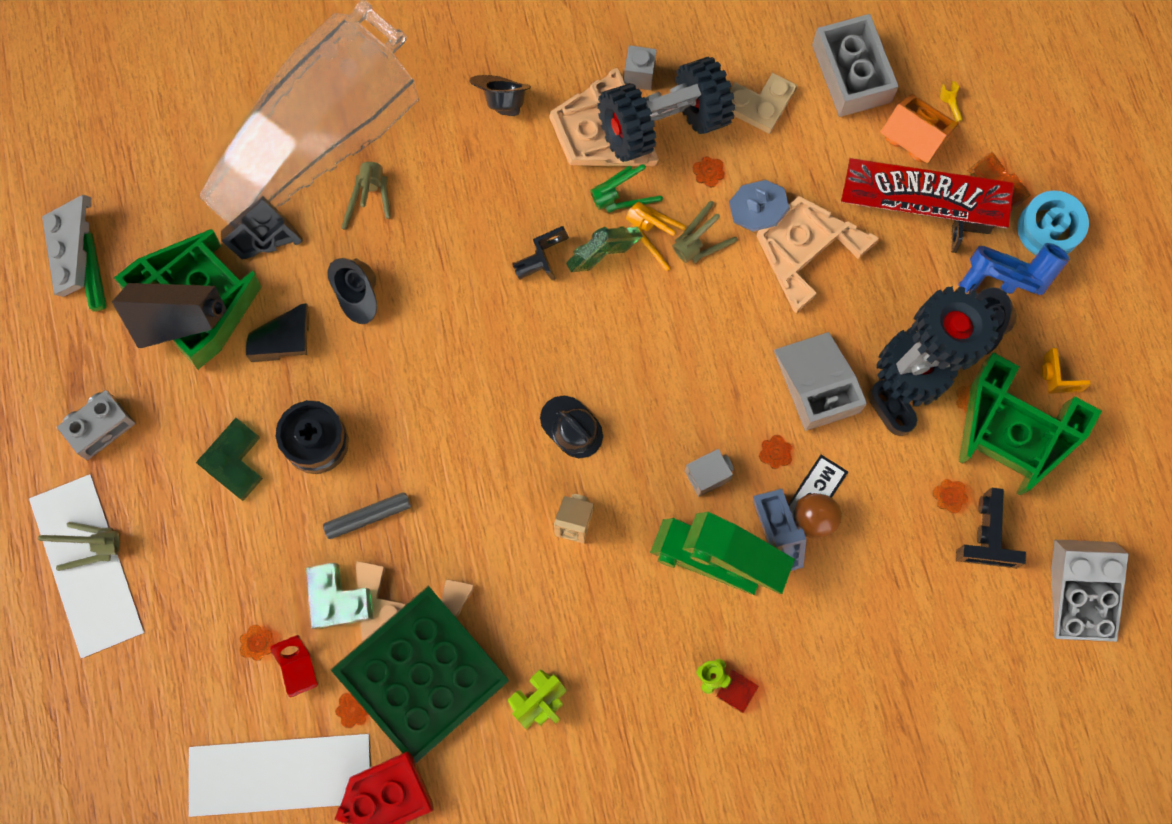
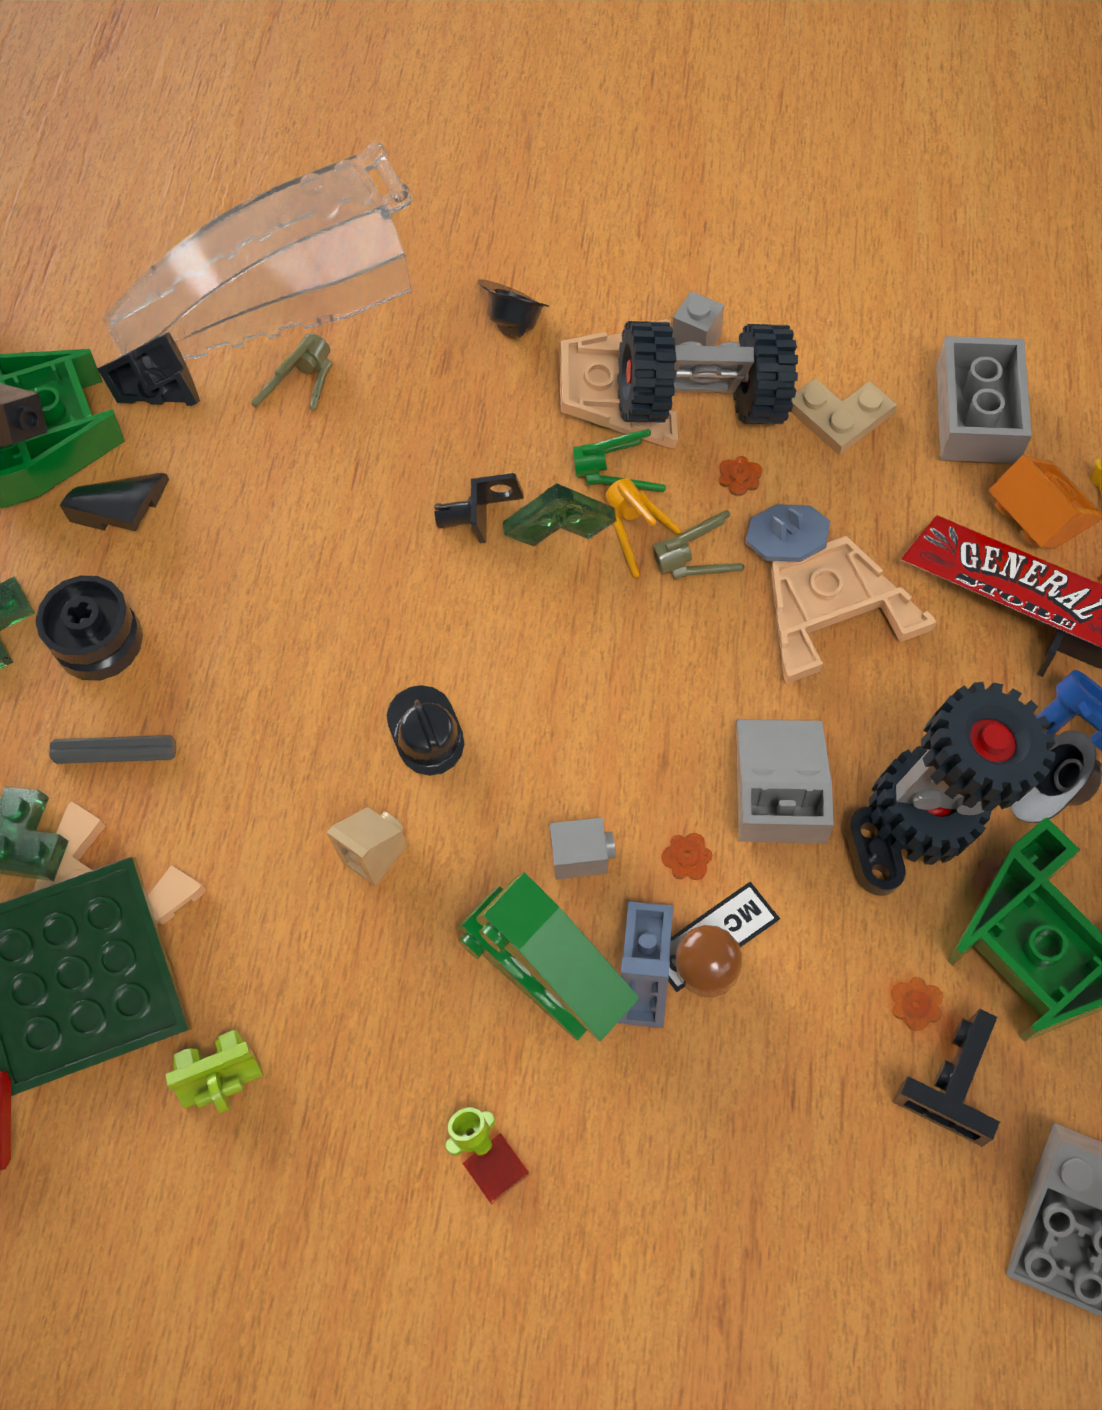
camera: 25 degrees right, 10 degrees down
(354, 286) = (230, 469): black piece -> none

